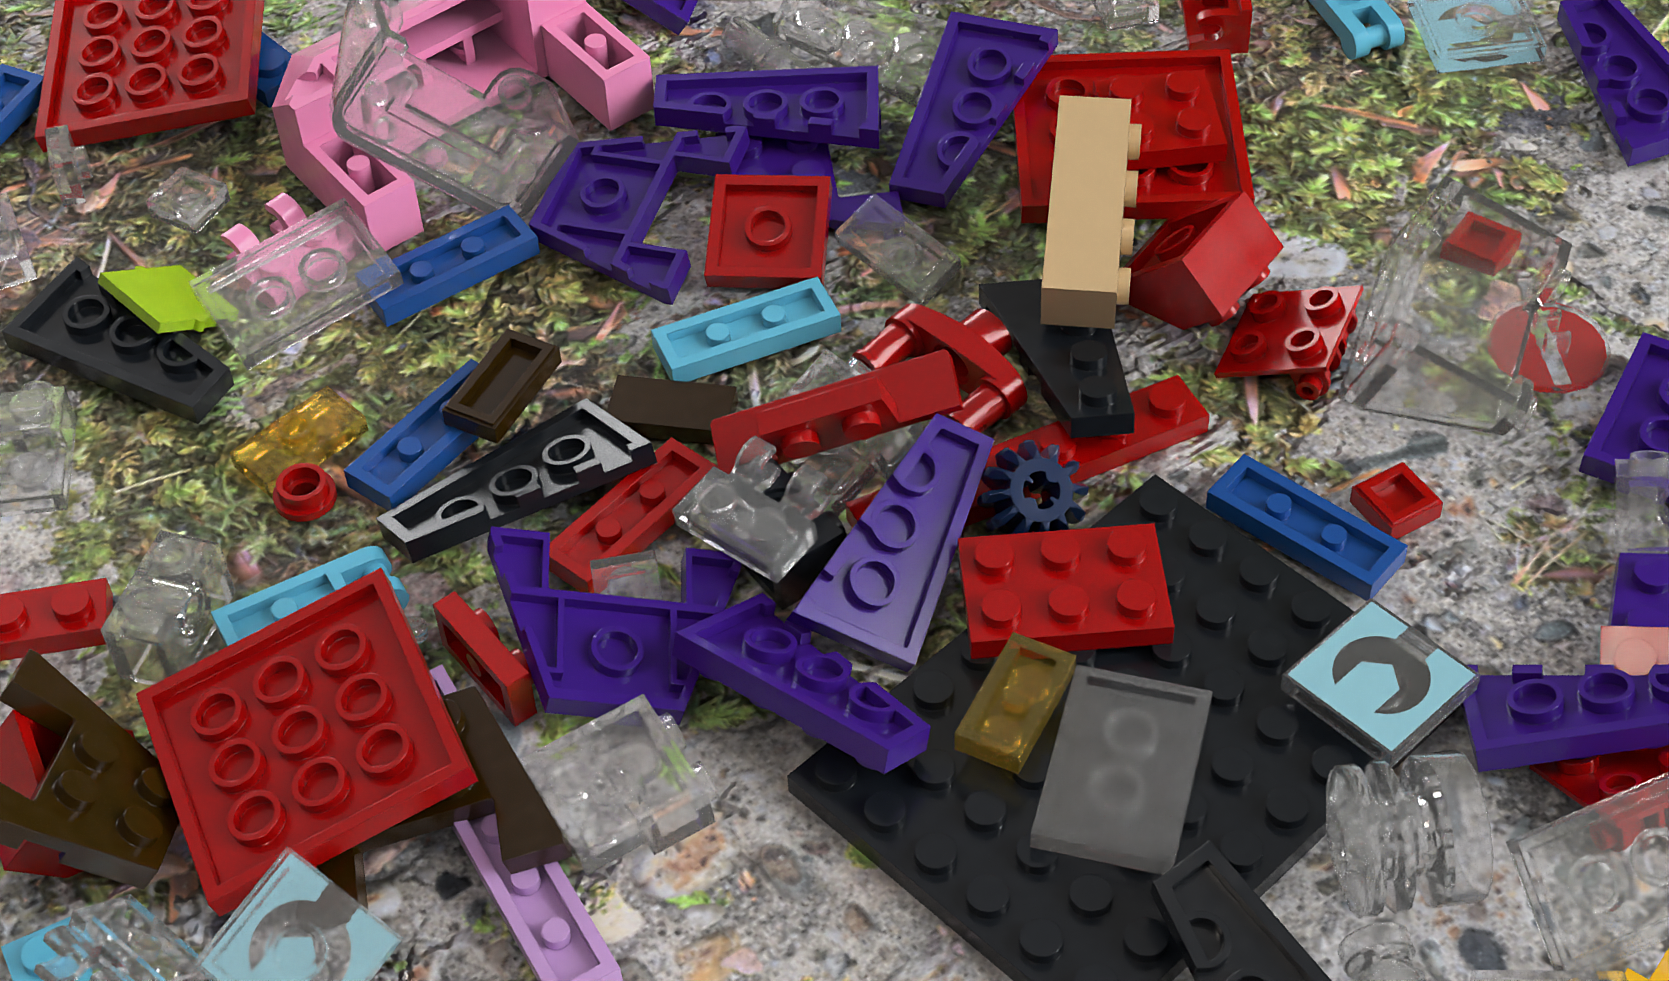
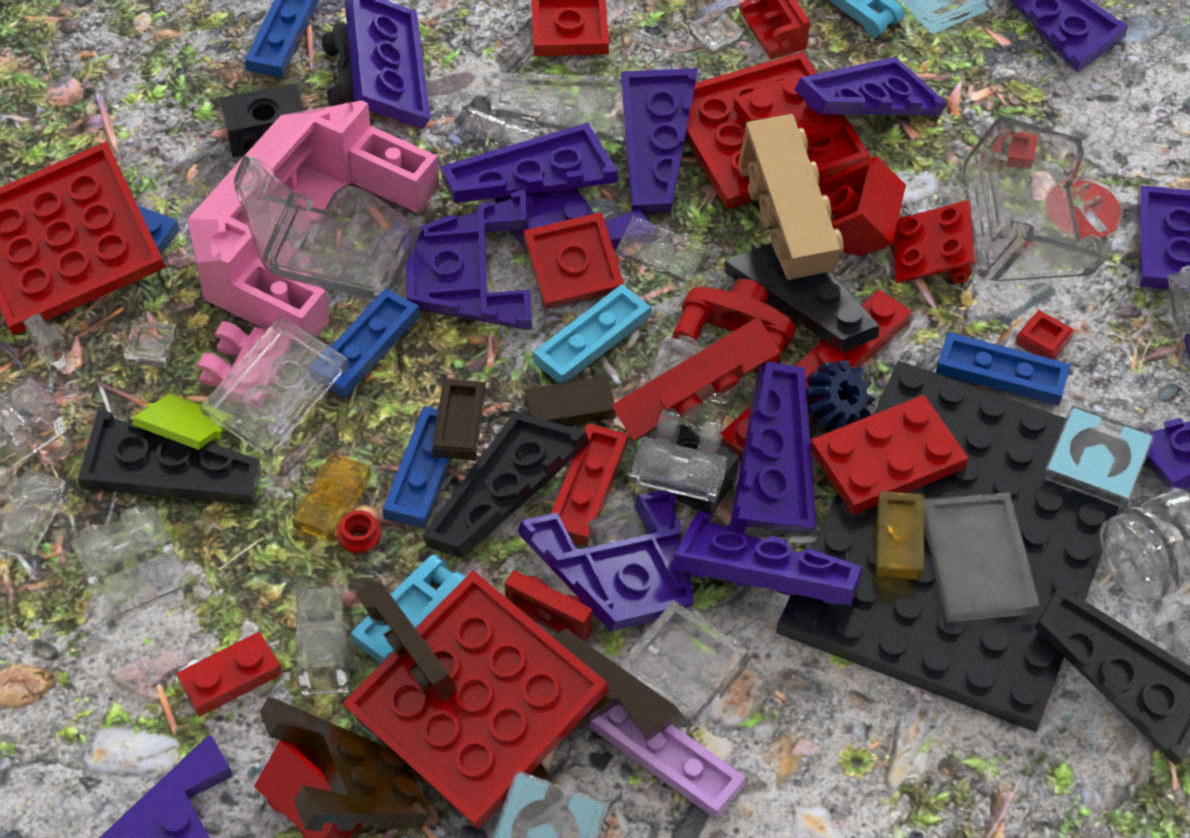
camera: 25 degrees left, 5 degrees up
(241, 633) = (405, 639): none -> dark brown plate
(1291, 111) = (870, 89): none -> dark purple wing

